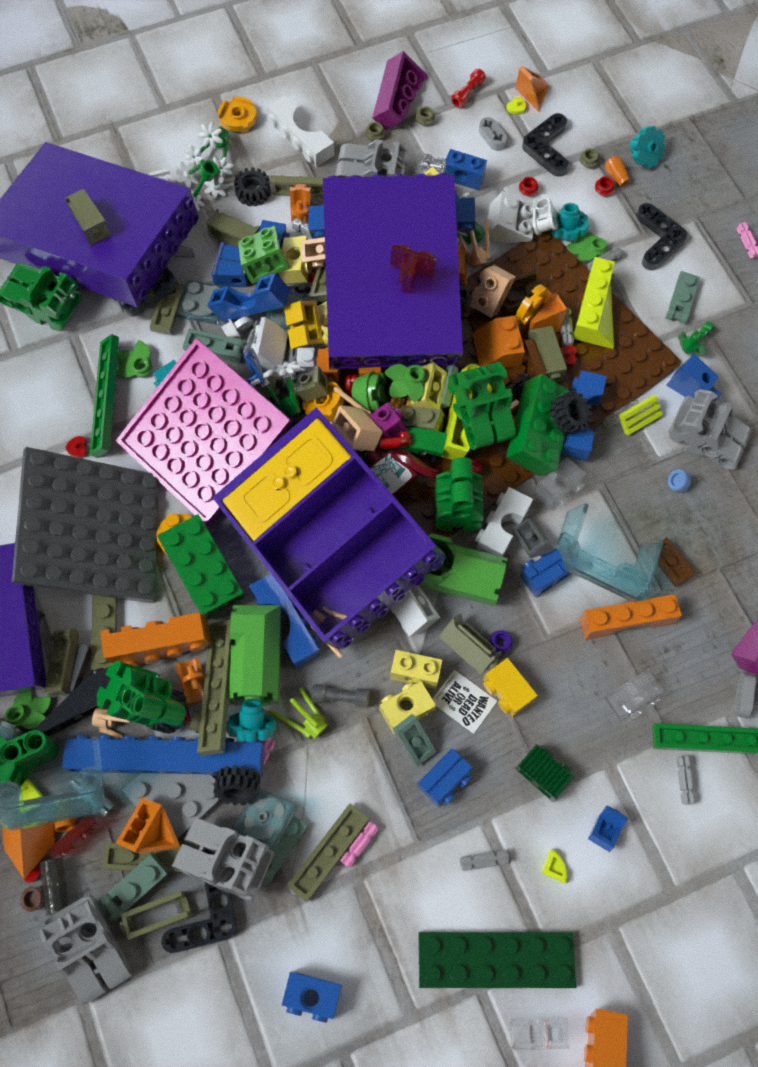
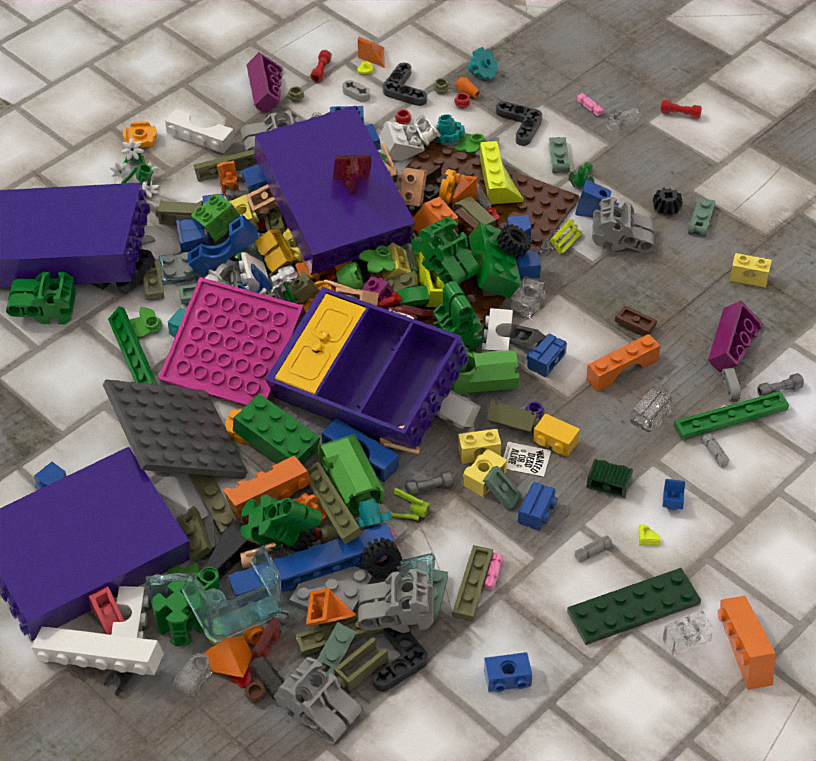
camera: 20 degrees left, 20 degrees down
(88, 217) = (68, 221): olive window -> none
(249, 178) = (179, 186): black tyre -> none
(375, 131) = (259, 115): olive plate -> none
(626, 580) = (610, 336): clear light blue windscreen -> none
(679, 480) = (616, 268): medium blue tile -> none

